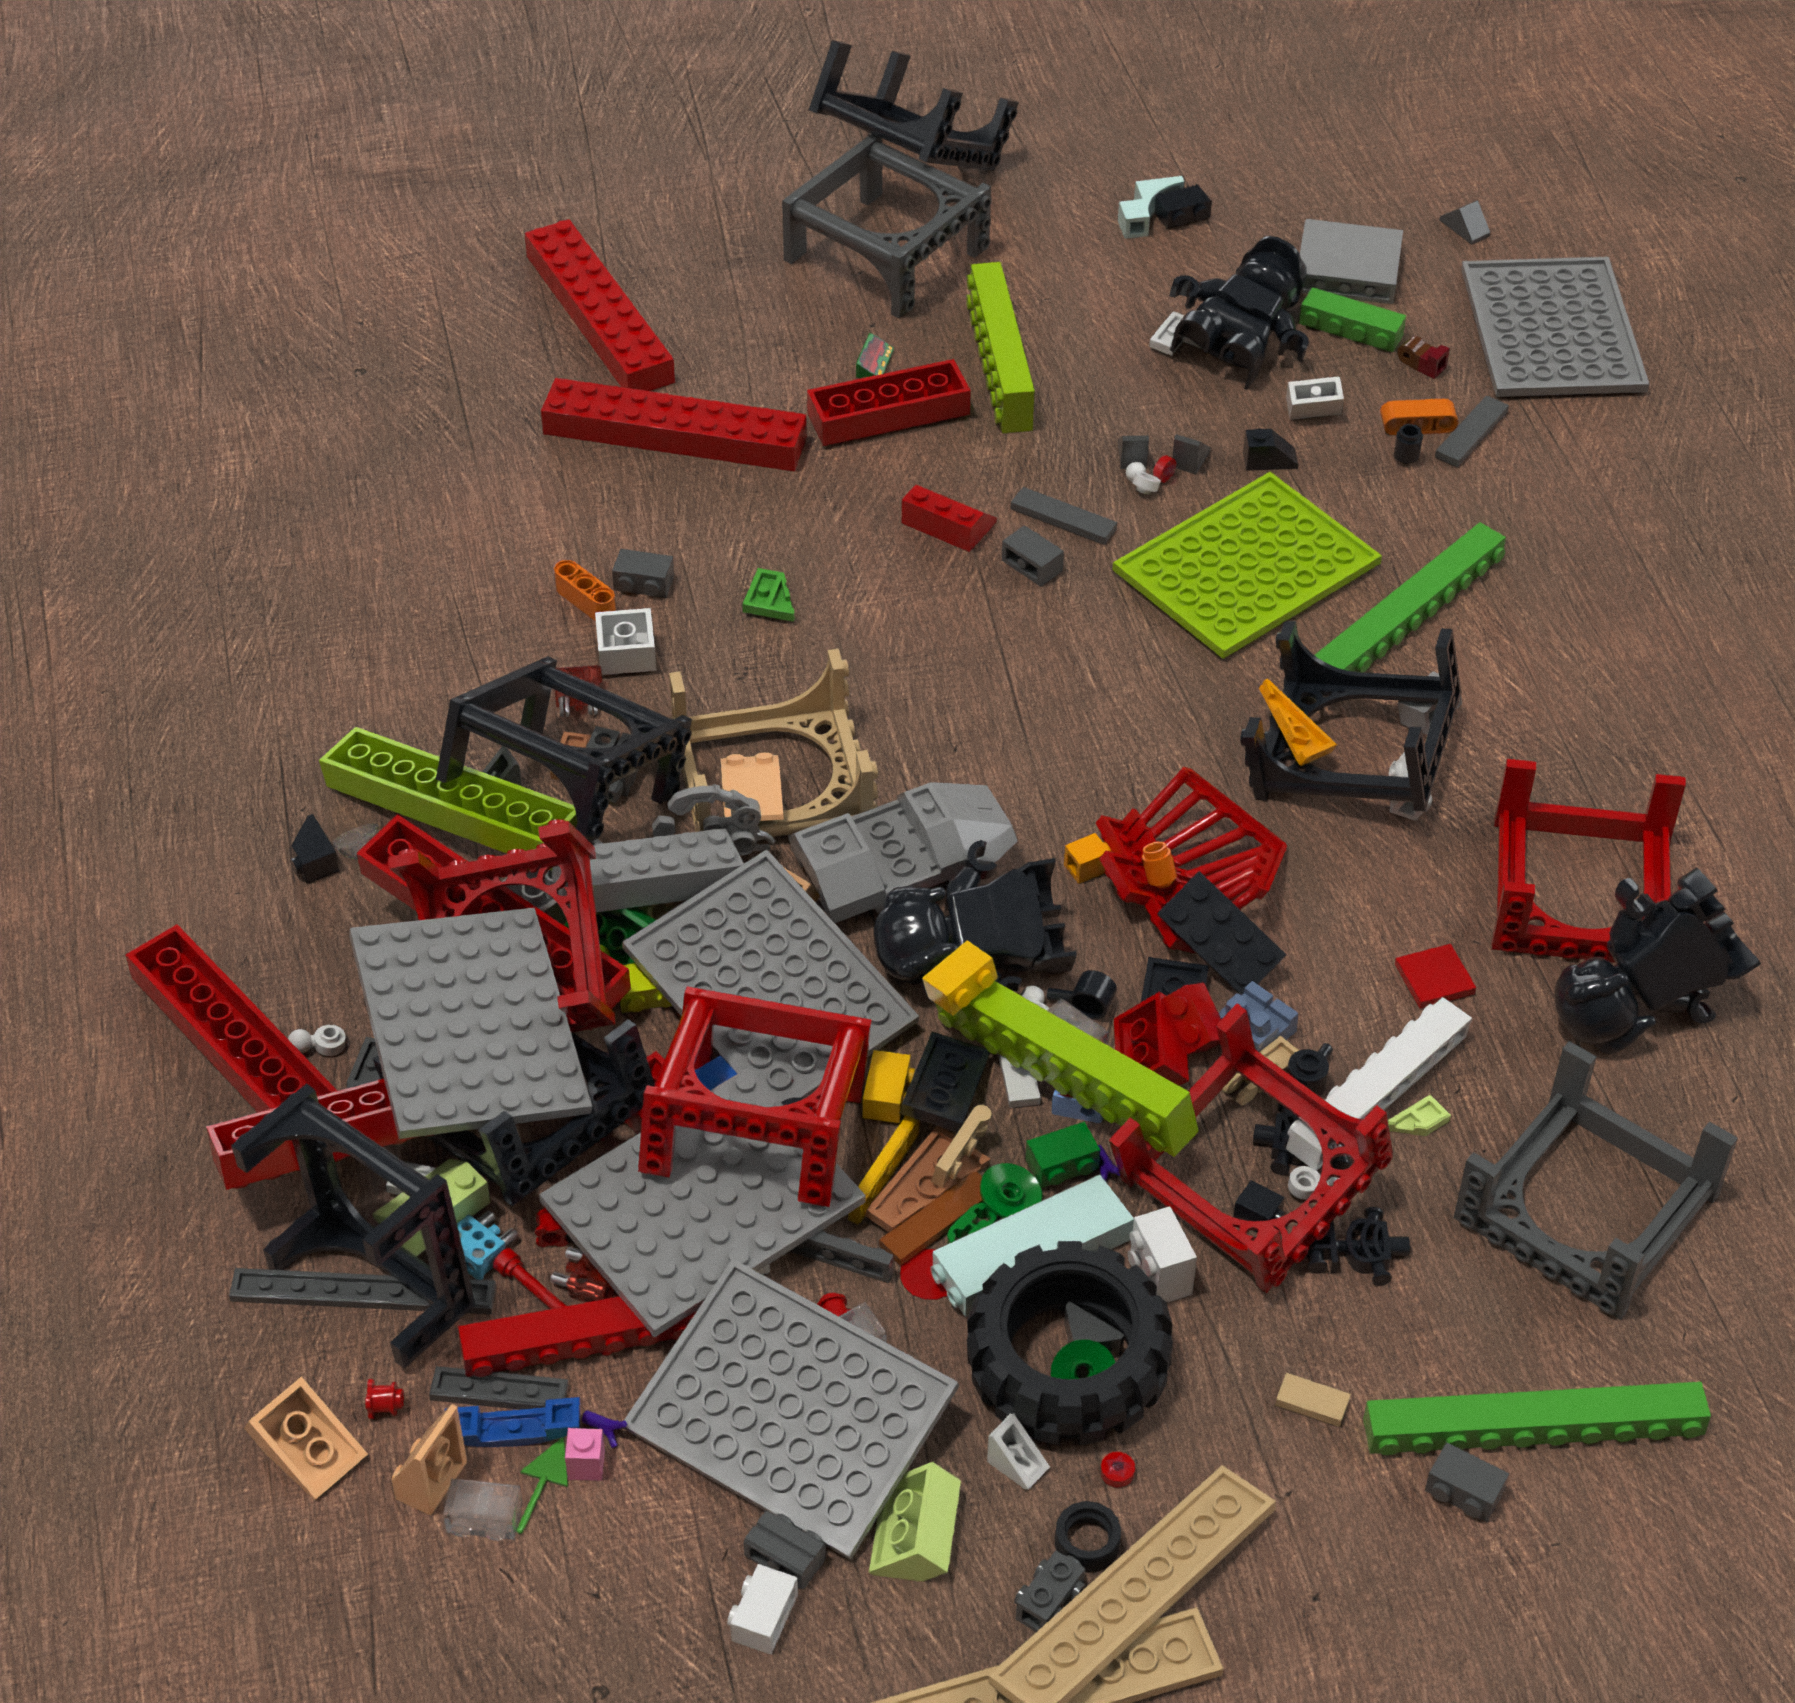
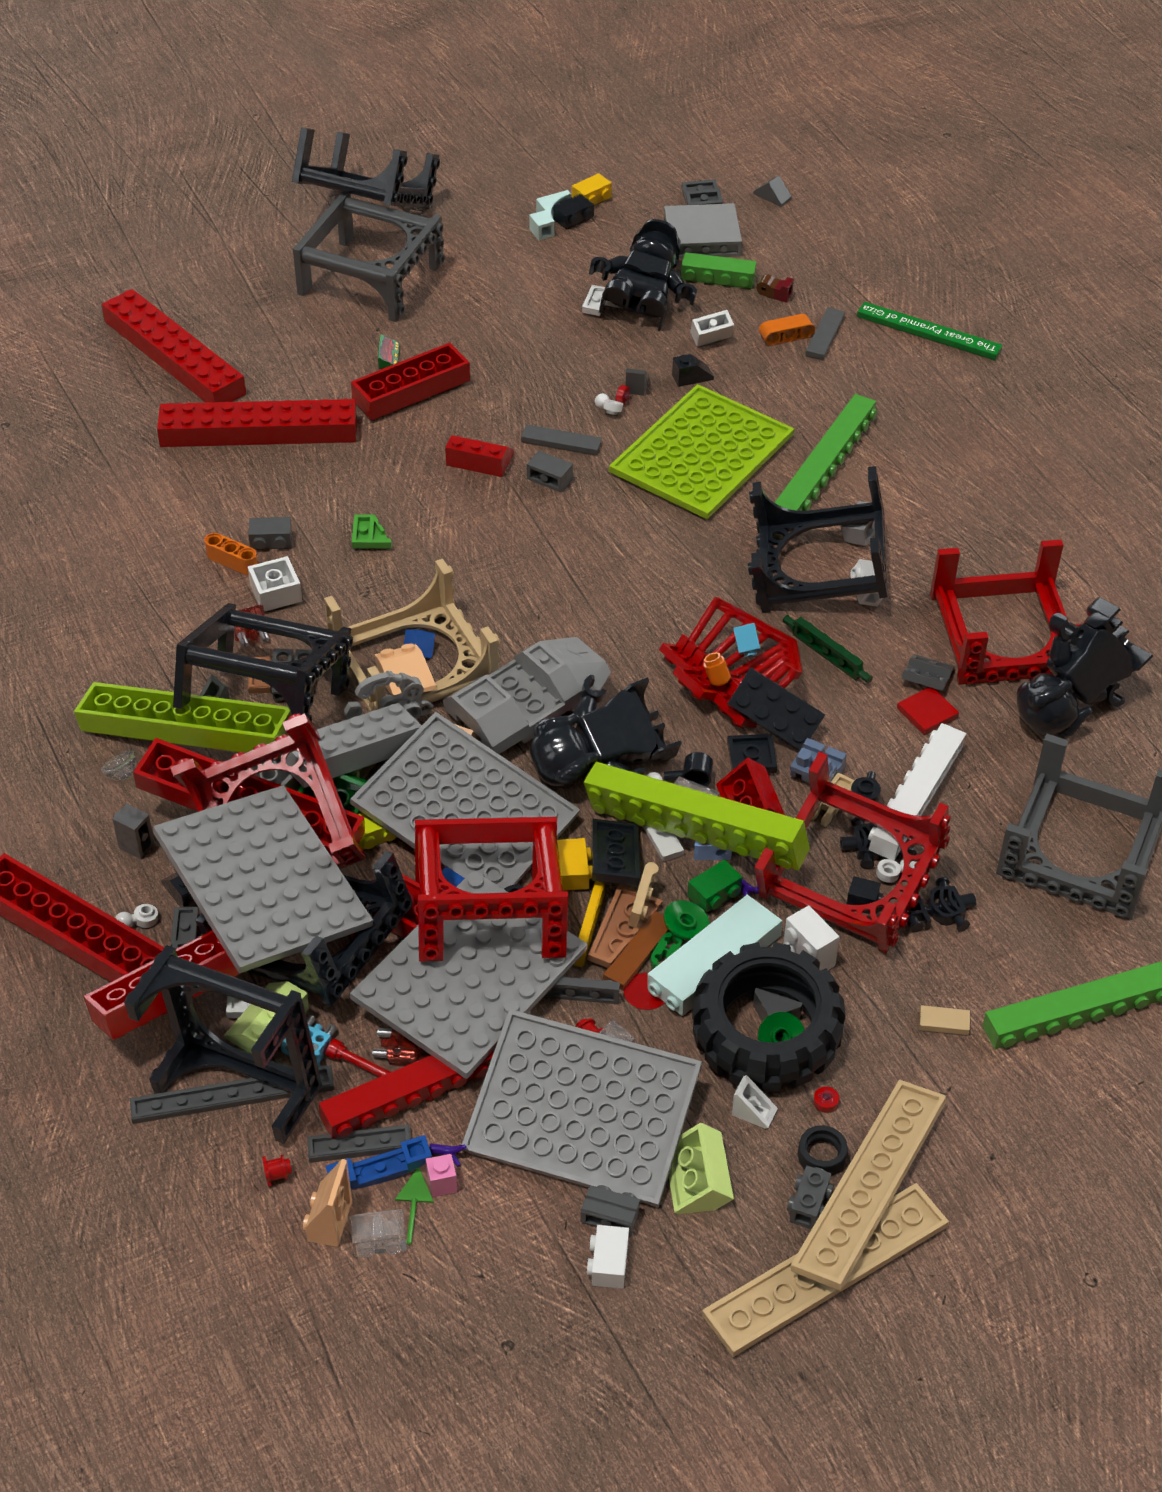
camera: 15 degrees left, 0 degrees up
(305, 1439) = (226, 1212): light nougat slope -> none
(313, 852) = (89, 780): black slope -> none
(337, 918) = (133, 831): none -> flat silver brick
(549, 1231) = (360, 1018): red brick -> none
(790, 753) = (422, 639): none -> blue panel
(960, 978) = (610, 774): yellow brick -> none
(1000, 347) = (479, 329): lime brick -> none
(1083, 857) = (660, 675): light orange brick -> none
(1133, 449) = (595, 385): dark grey slope -> none
(1194, 1017) = (777, 771): red brick -> none
(1213, 833) = (747, 640): none -> medium azure brick
(1219, 180) = (594, 189): none -> yellow brick
(1301, 733) = (783, 559): light orange wing -> none
(1325, 865) = (828, 648): none -> dark green plate
(1367, 208) = (701, 192): none -> dark grey slope
(1408, 444) = (787, 349): black brick -> none
(1420, 1118) = (957, 807): yellowish green tile -> none
(1453, 924) = (928, 672): none -> dark grey slope
(1466, 1482) = (1069, 1053): dark grey brick -> none
(1553, 327) = (857, 253): light grey plate -> none
(1620, 452) = (929, 330): none -> green tile

